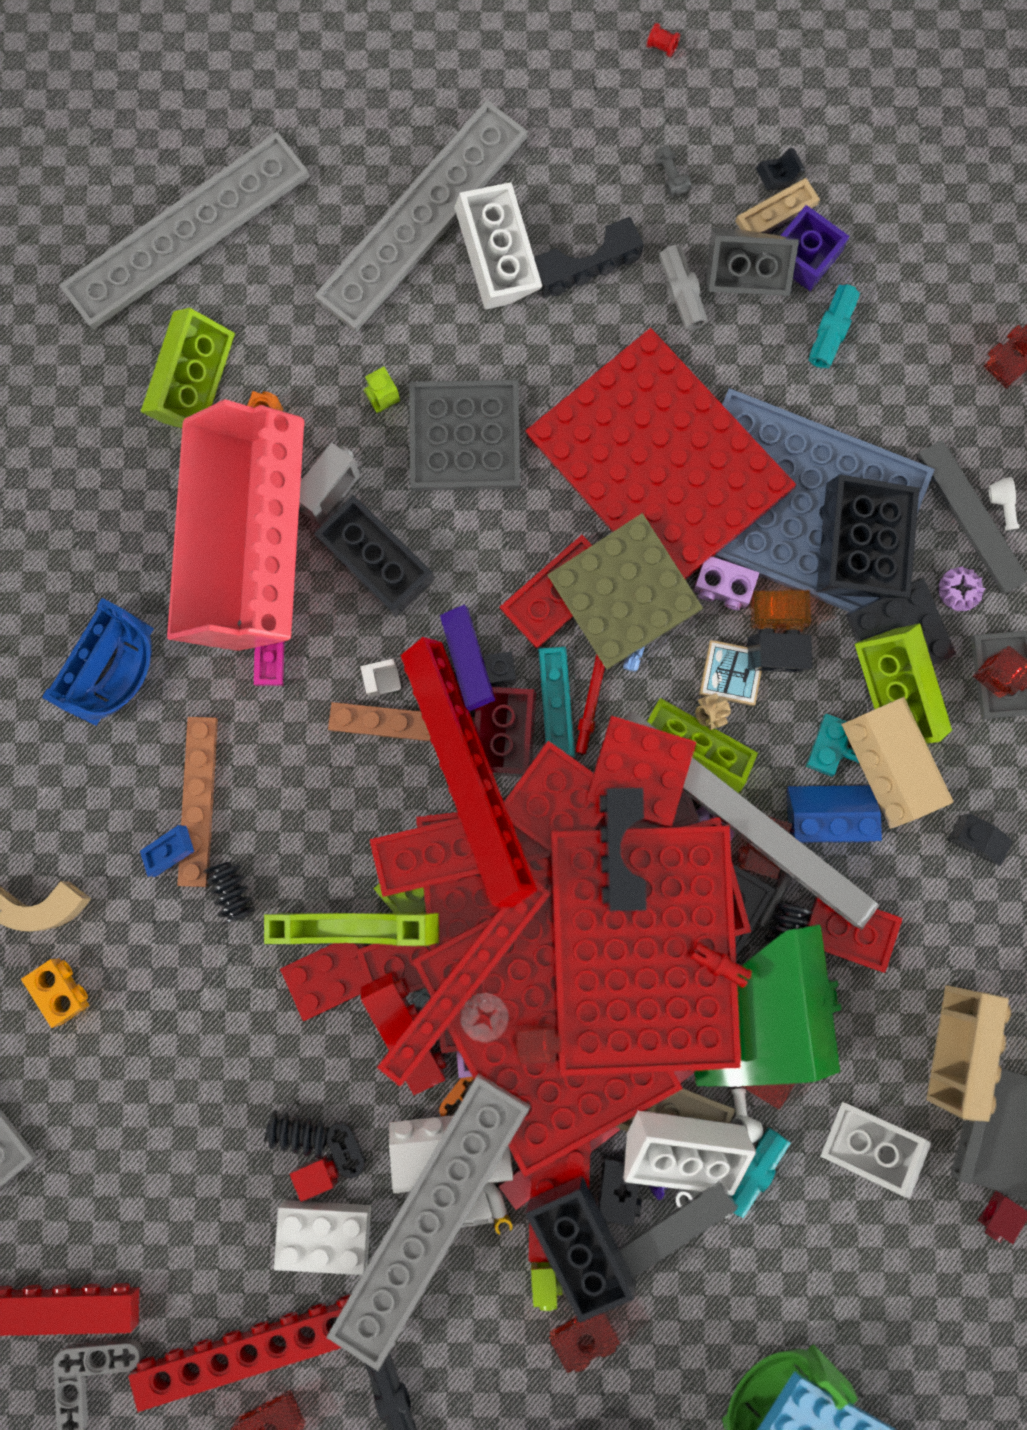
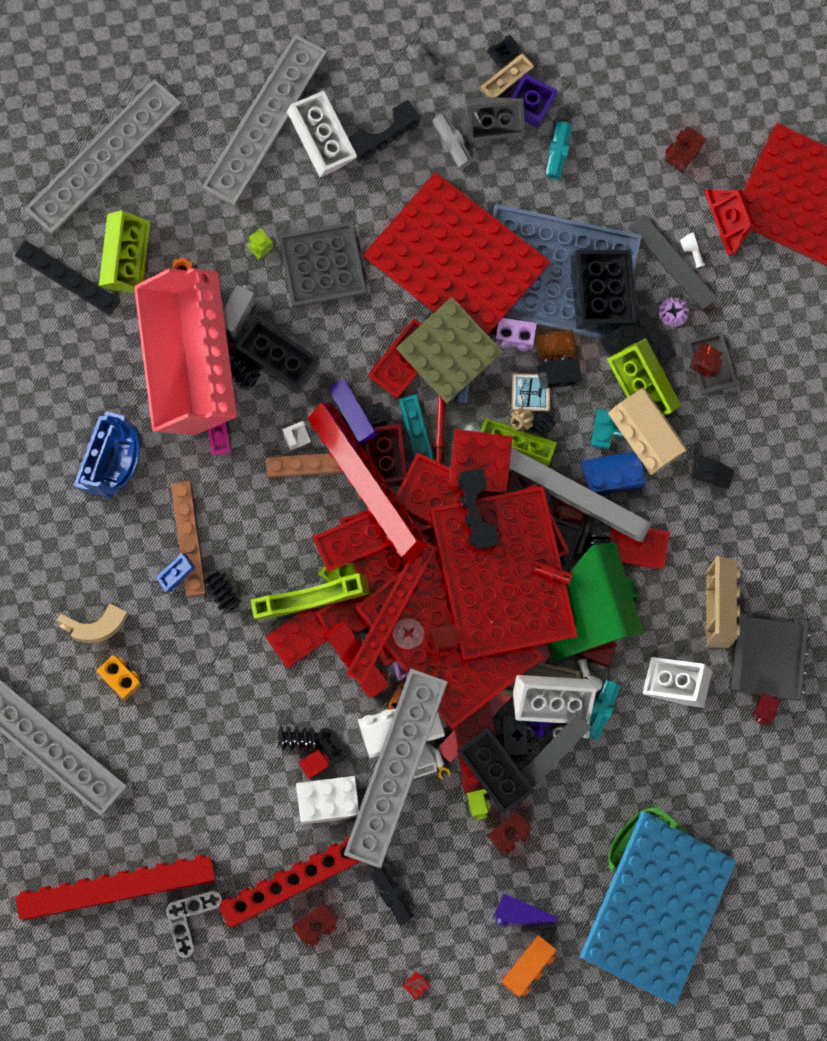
camera: 20 degrees left, 5 degrees down
(102, 394) = (67, 278): none -> black plate
(316, 570) = (241, 373): none -> black piece
(745, 720) = (544, 422): none -> black gear

